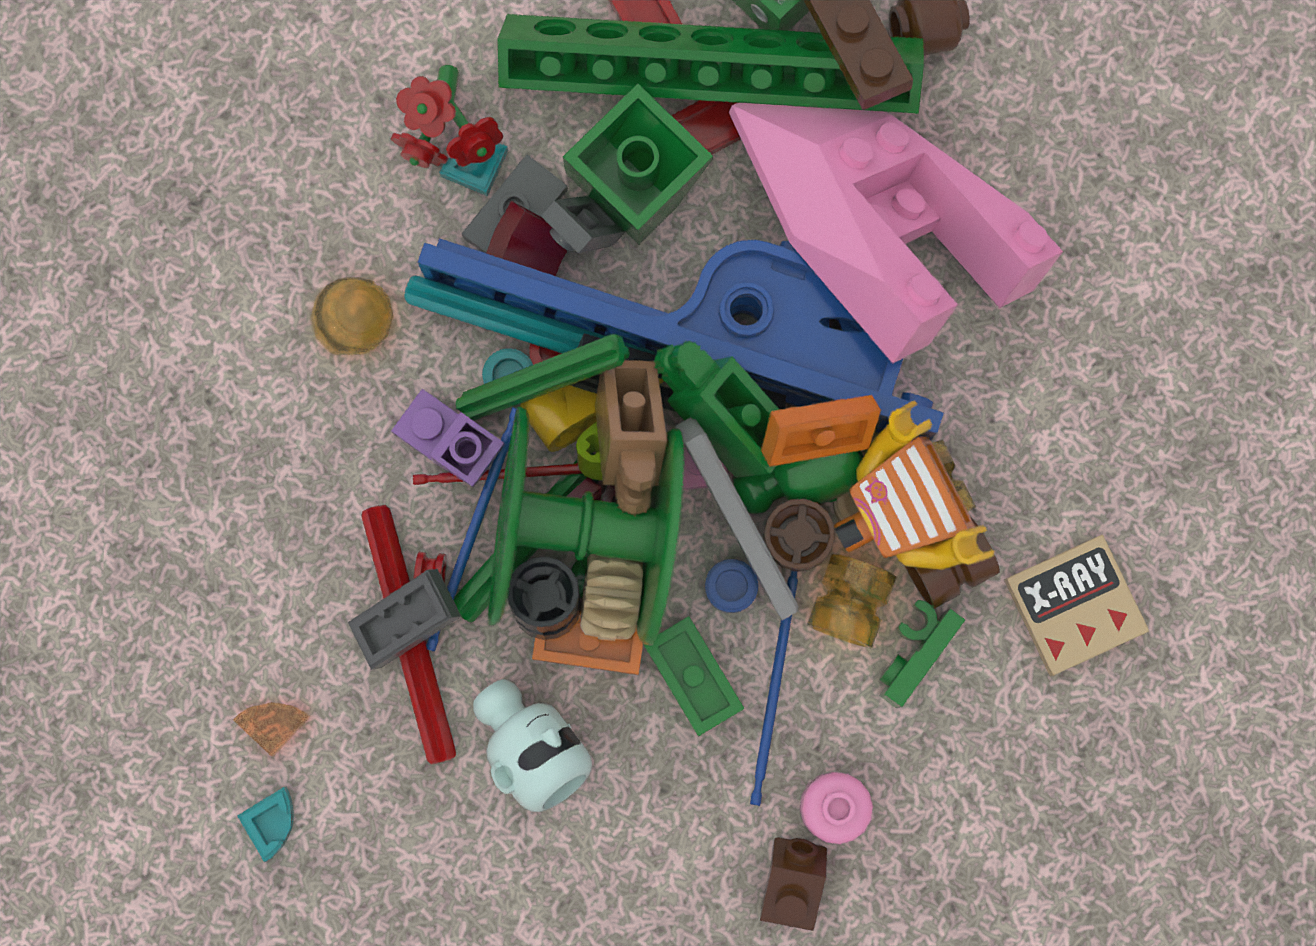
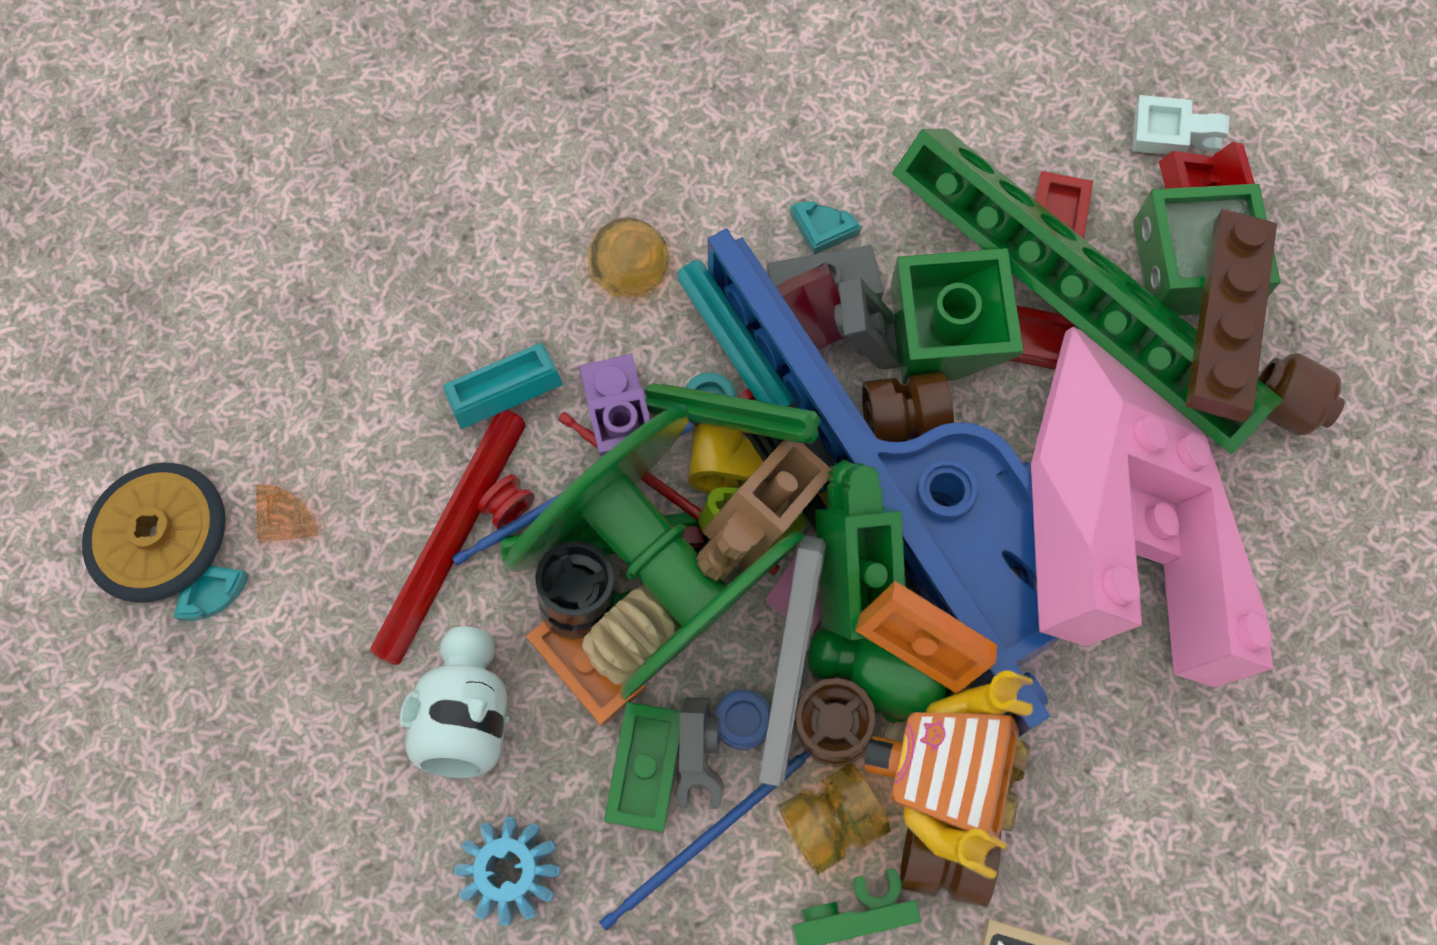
camera: 40 degrees right, 10 degrees down
(214, 792) = (187, 539): none -> pearl gold wheel
(347, 493) = (502, 385): none -> teal tile
(404, 619) = (453, 514): dark grey plate -> none
(428, 108) = (824, 142): red plant -> none
(664, 264) = (909, 409): none -> reddish brown wheel
(677, 834) = (510, 892): none -> medium azure gear
(715, 625) = (697, 739): none -> dark grey plate

